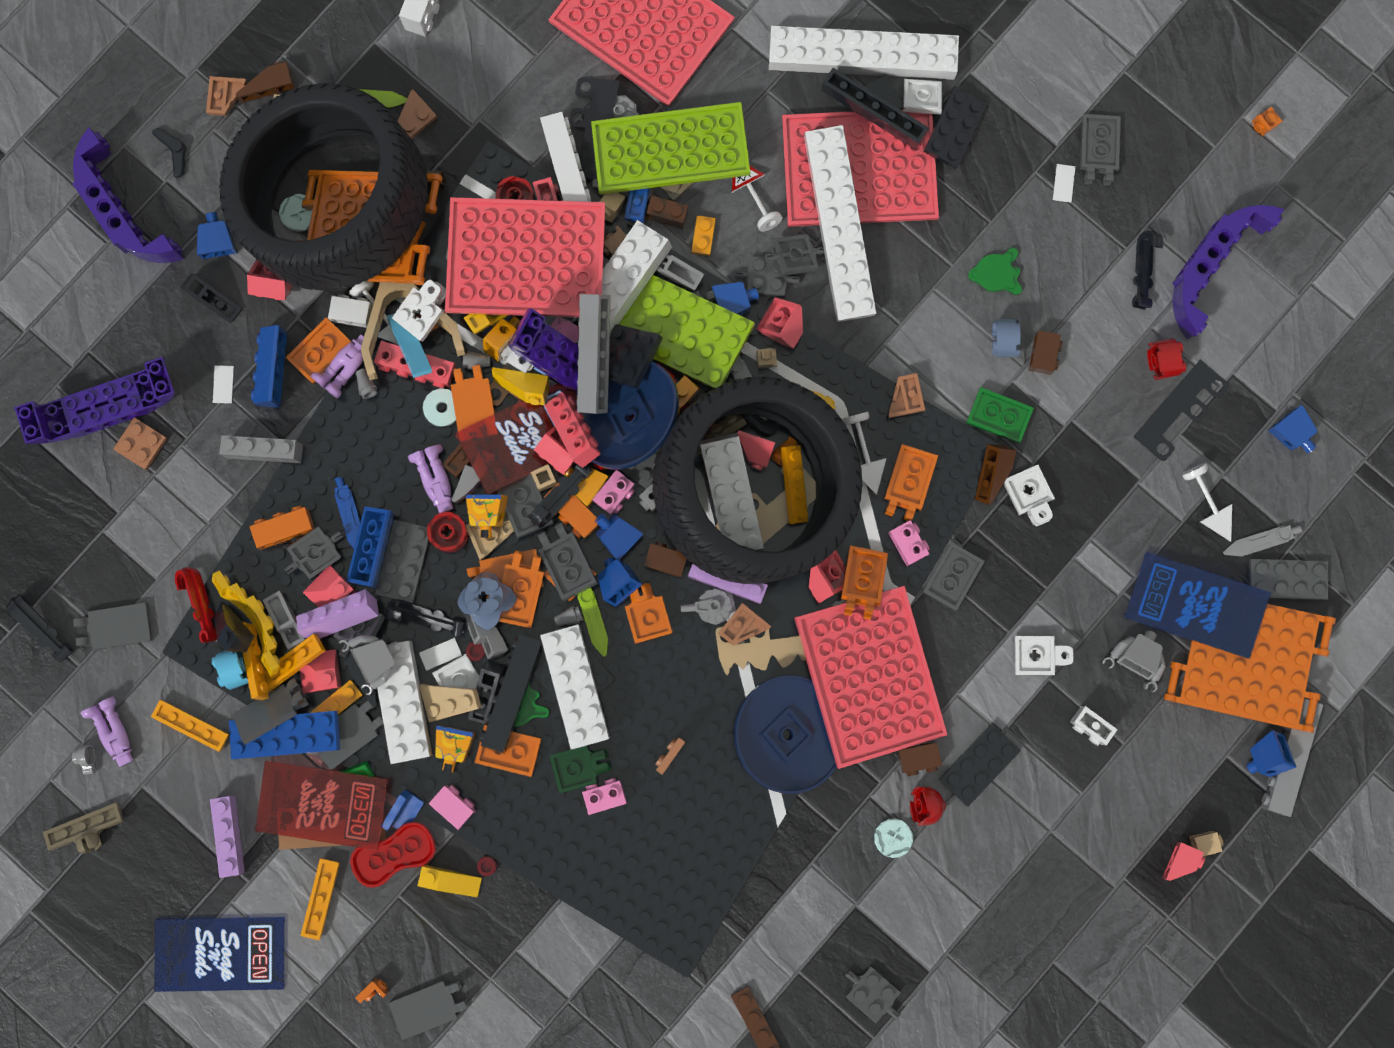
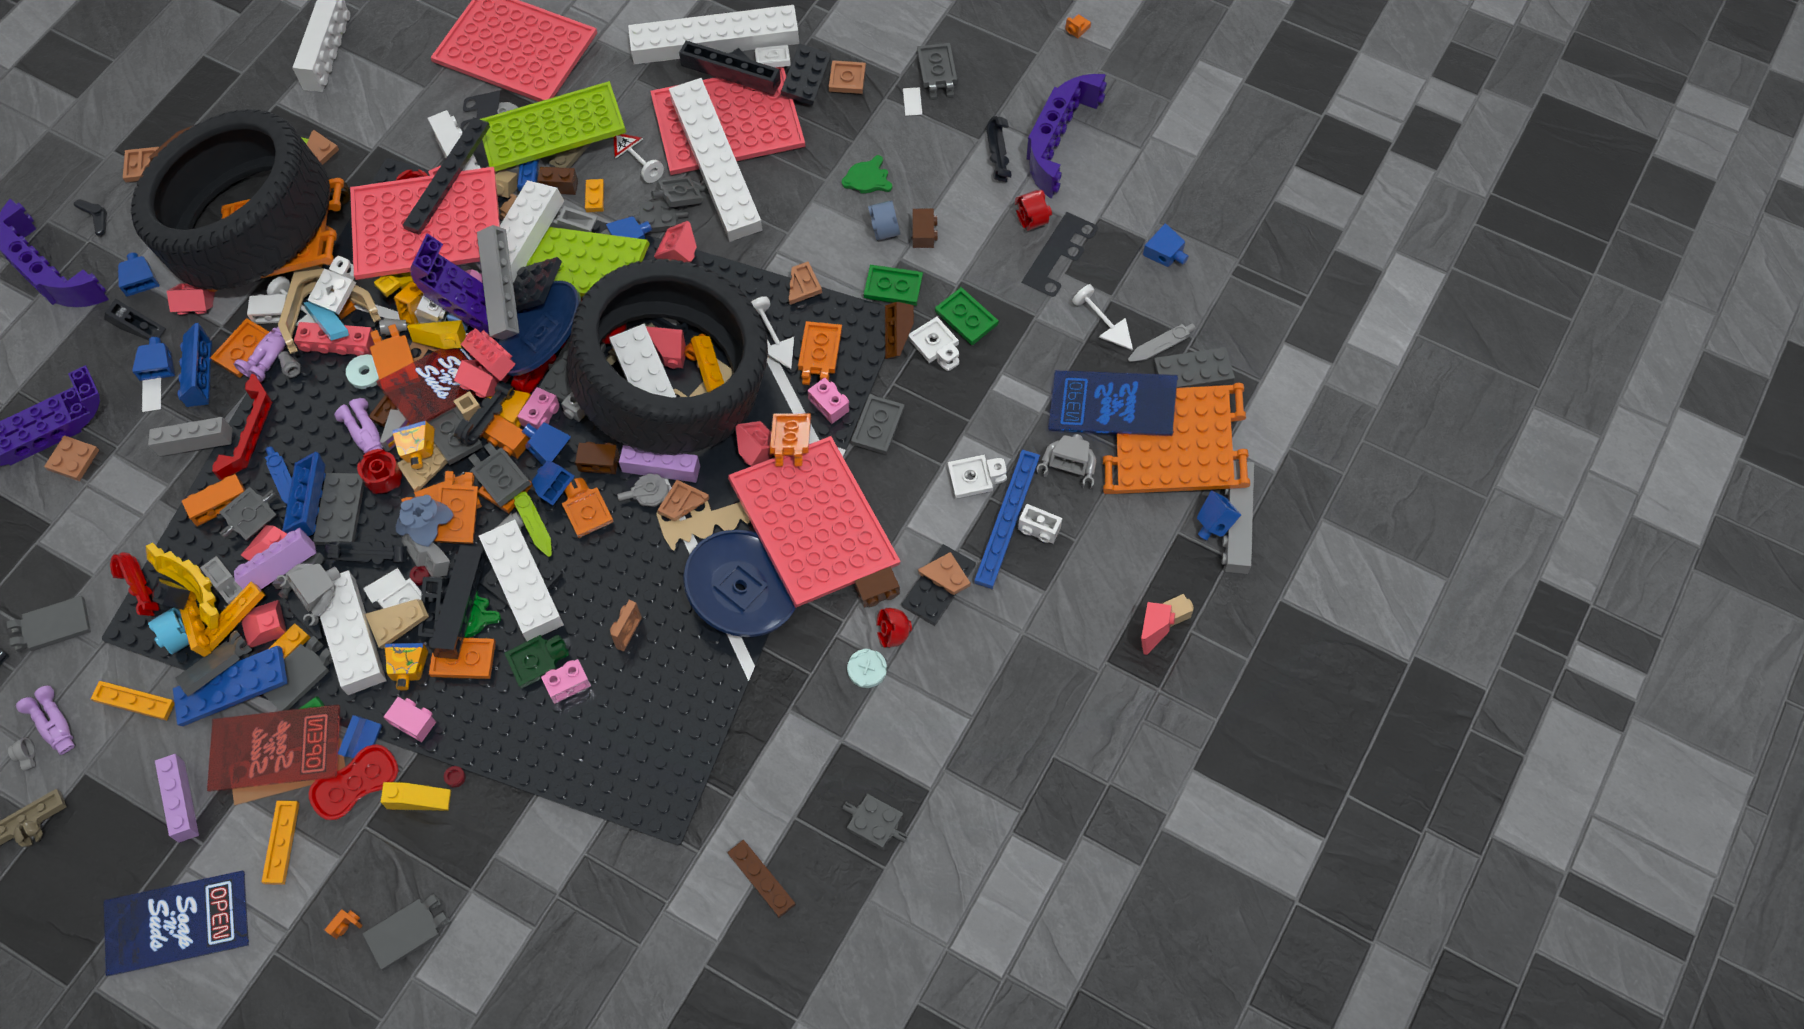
camera: 10 degrees left, 20 degrees down
(228, 347) = (153, 361): none -> blue torso
(294, 491) = (228, 465): none -> red slope
(554, 205) = (446, 176): none -> black plate
(990, 760) = (946, 573): none -> nougat wing
(999, 139) = (847, 77): none -> nougat plate
(1062, 709) = (1007, 519): none -> blue plate
(1068, 468) = (966, 316): none -> green plate

